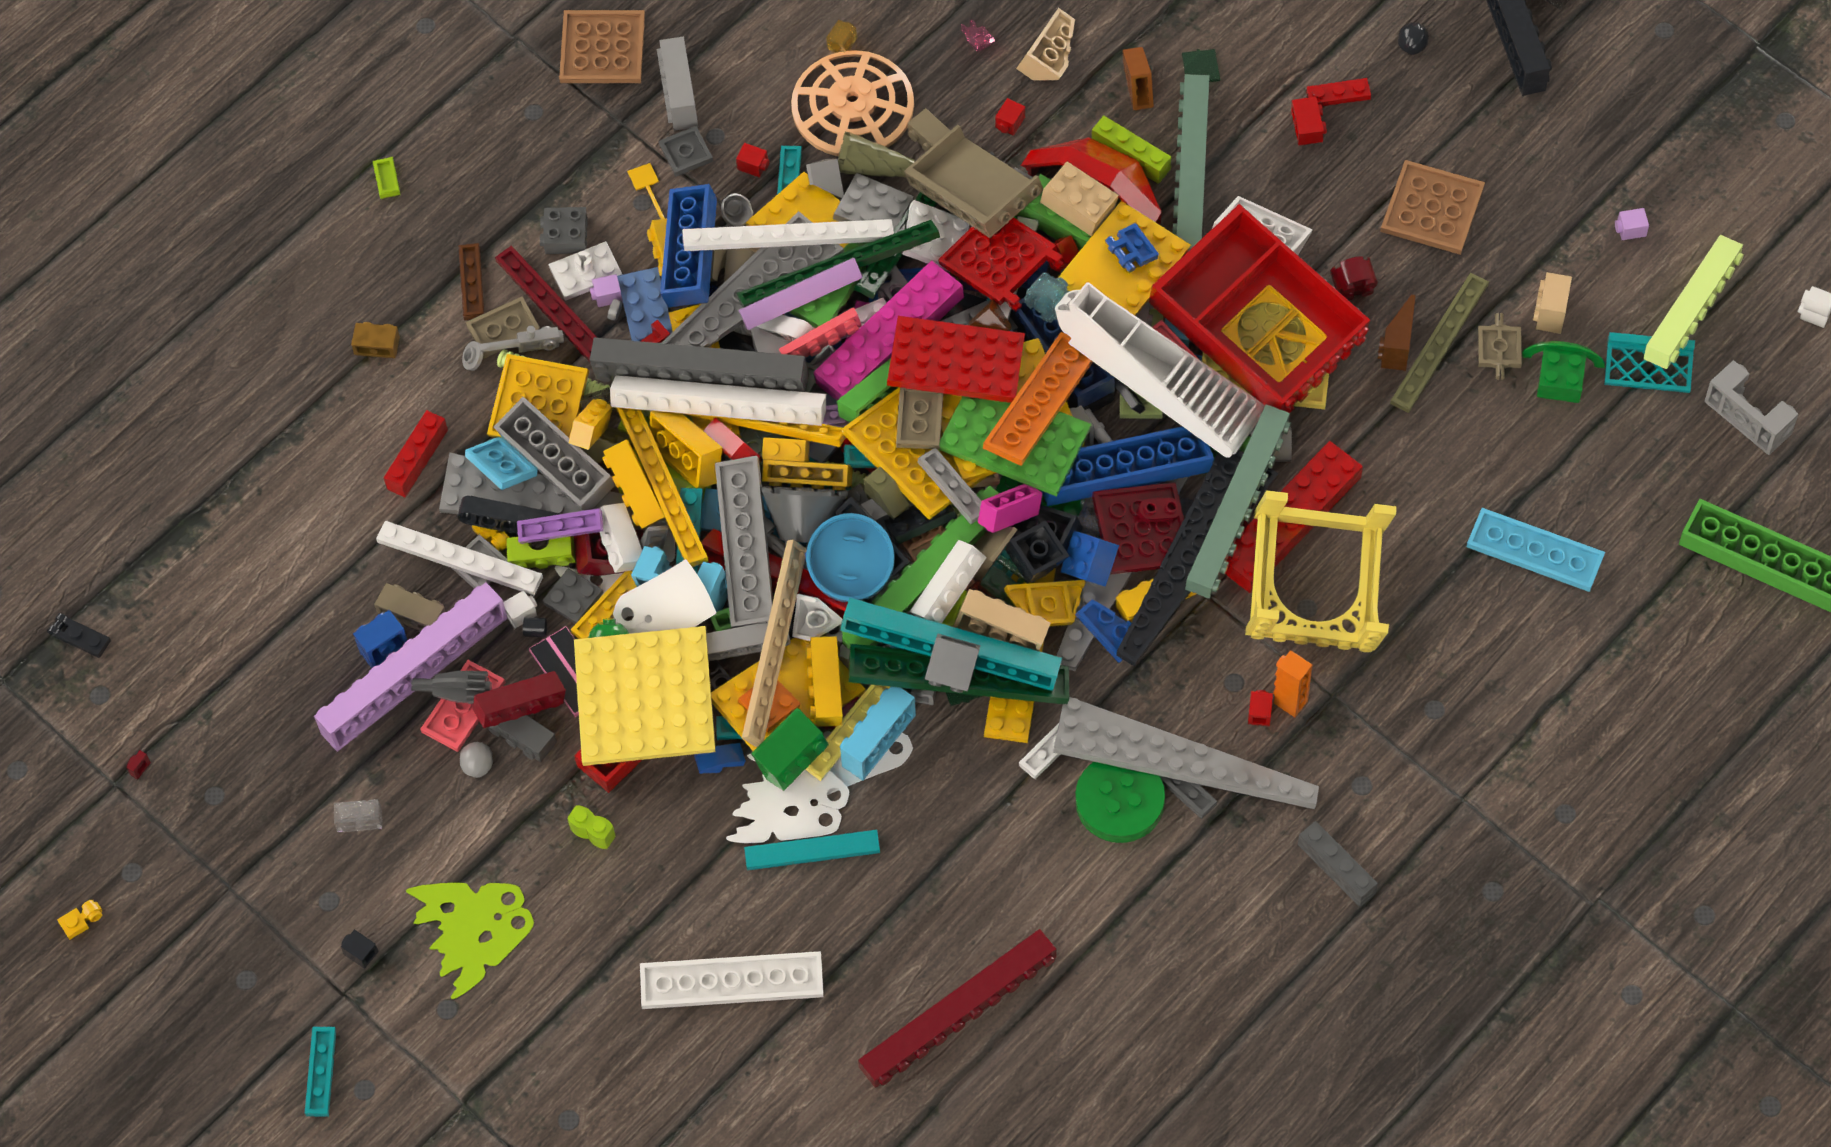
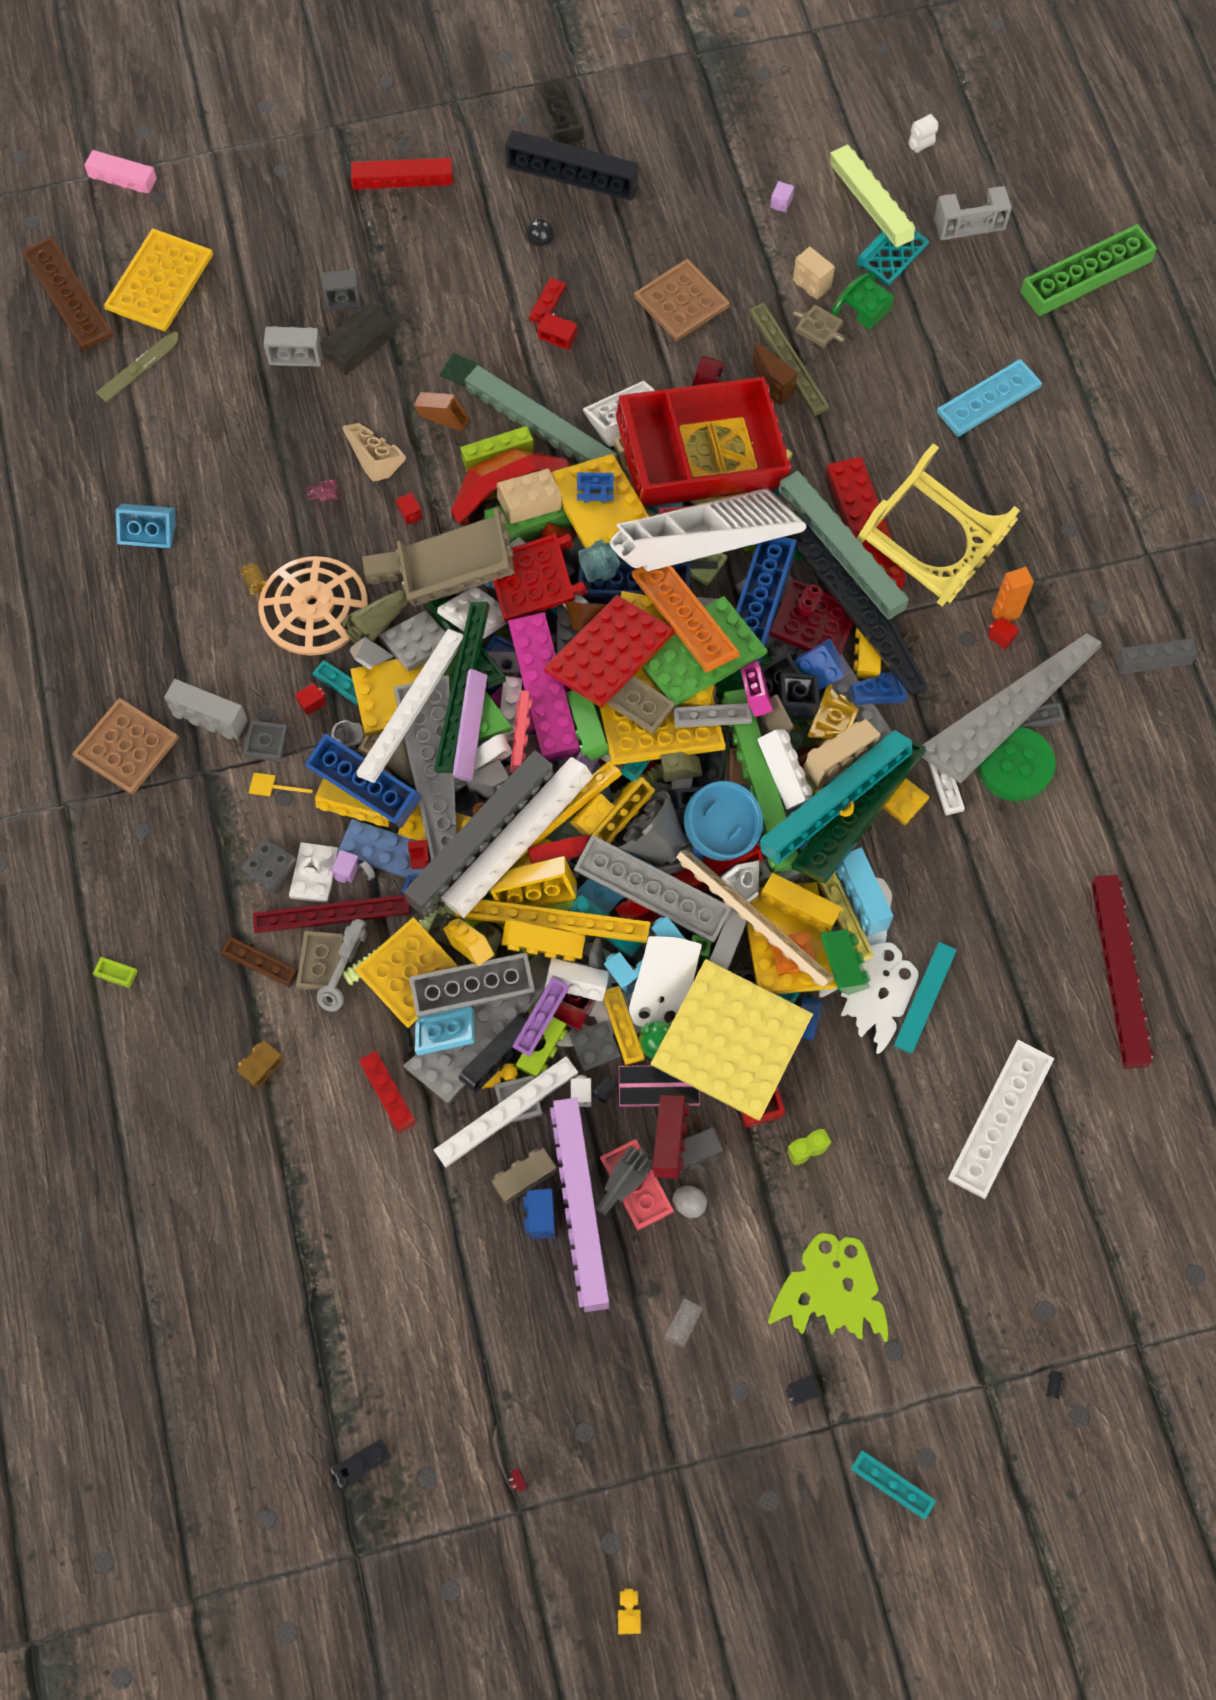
camera: 60 degrees left, 5 degrees up
(952, 663) = (862, 801): brick -> none

